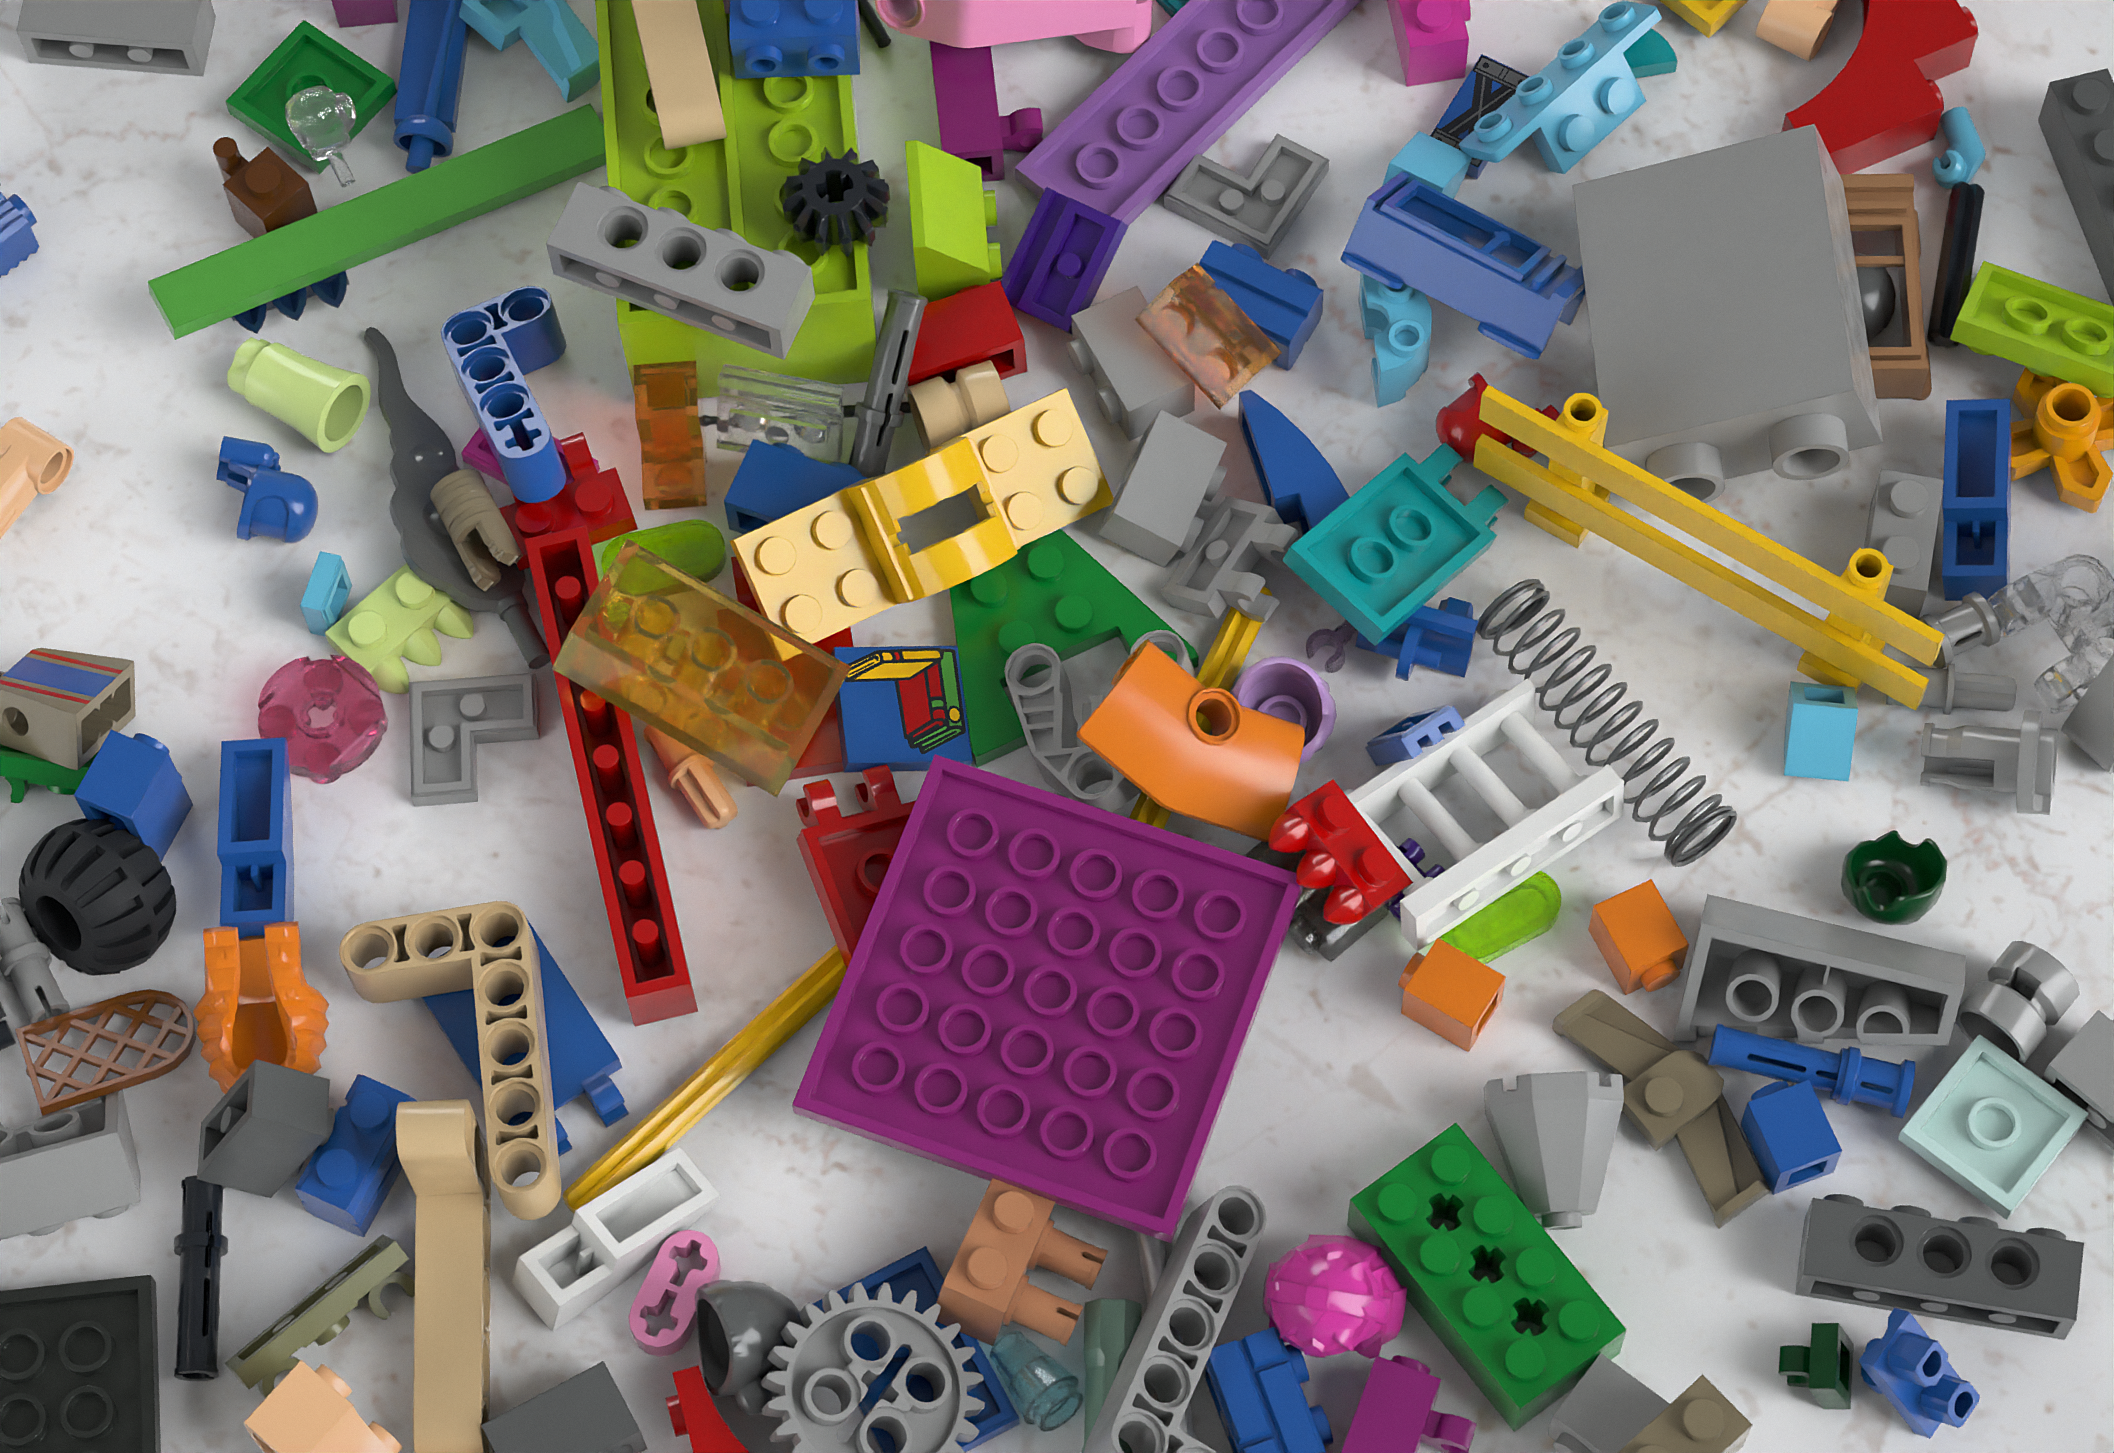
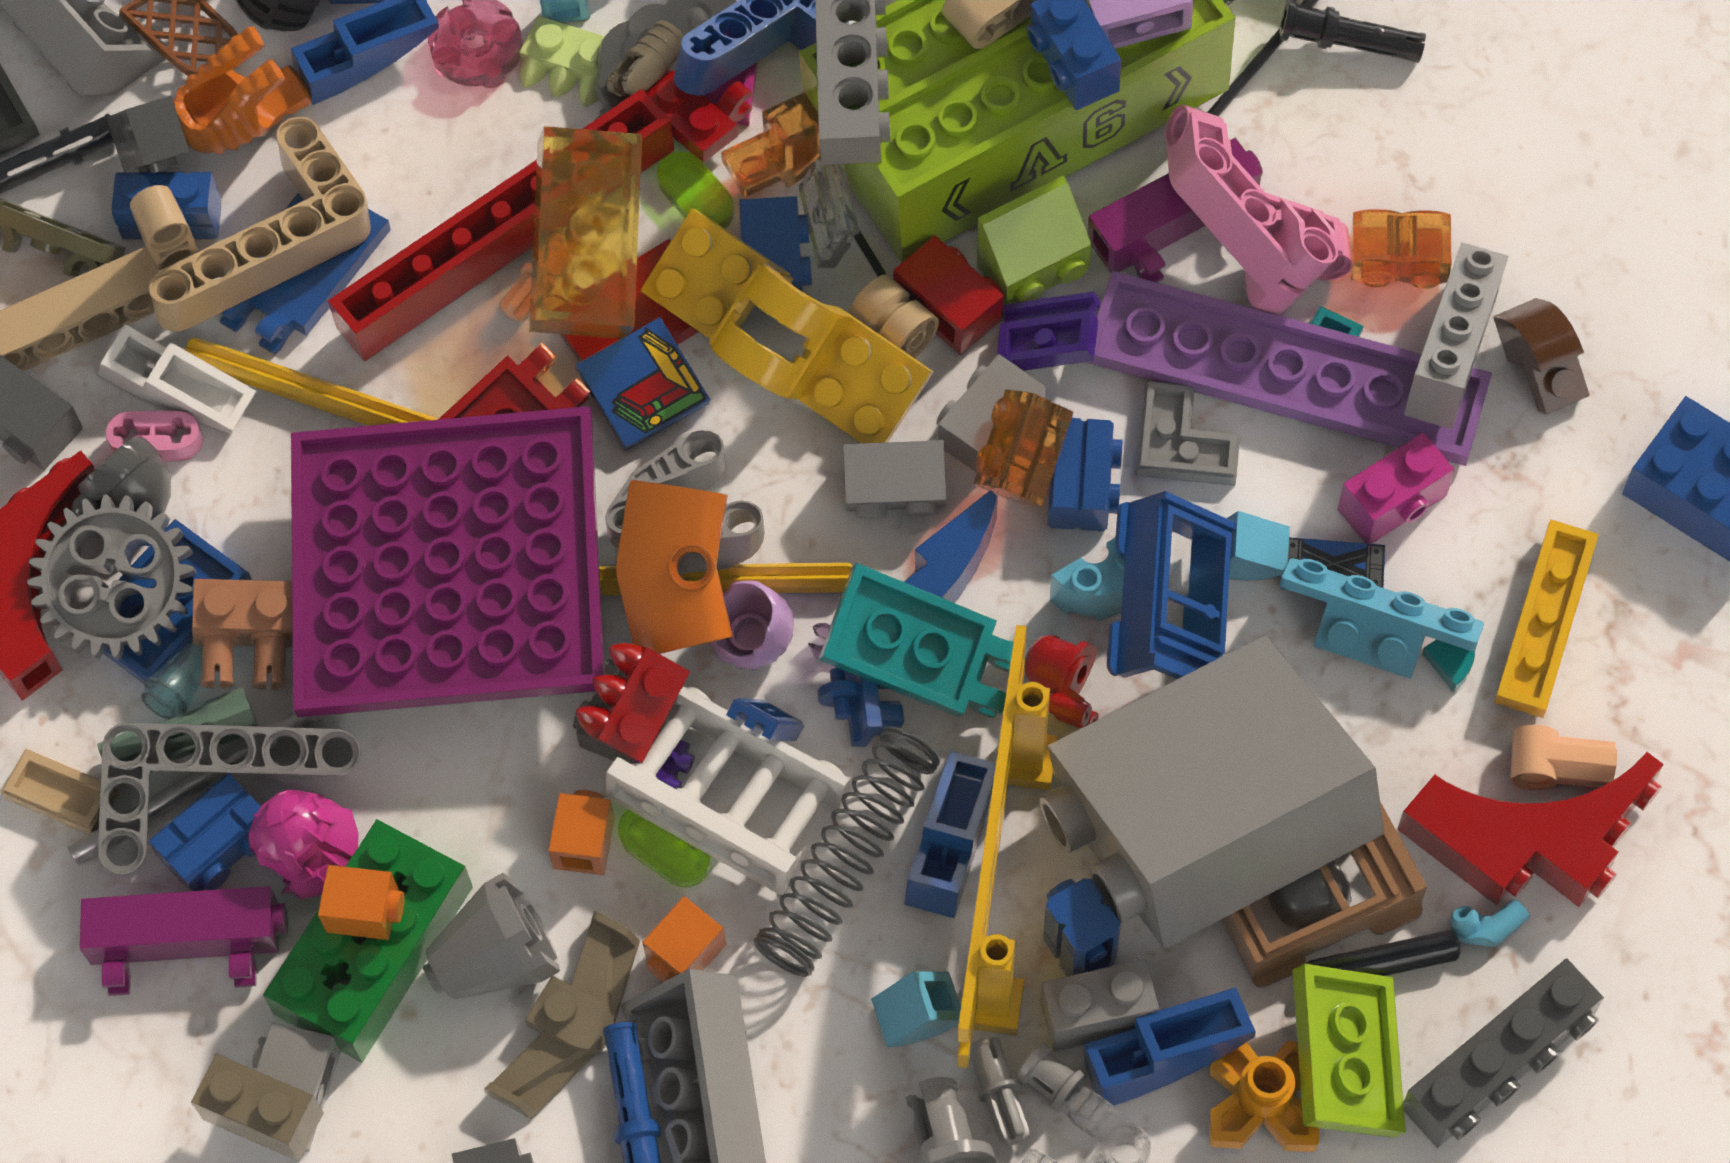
camera: 65 degrees right, 0 degrees up
(456, 716) = (505, 119): light grey tile -> none
(832, 180) = (951, 135): black gear -> none
(886, 383) = (835, 279): dark grey pin -> none
(1040, 596) = (766, 442): green wing -> none
(1221, 561) = (861, 540): light grey plate -> none
(1471, 1240) = (360, 902): none -> orange brick
(1629, 613) = (951, 835): none -> blue slope
(1790, 1135) = (571, 1109): blue brick -> none
(1818, 513) = (1080, 927): none -> blue brick
(1893, 878) = (811, 1104): dark green hair -> none

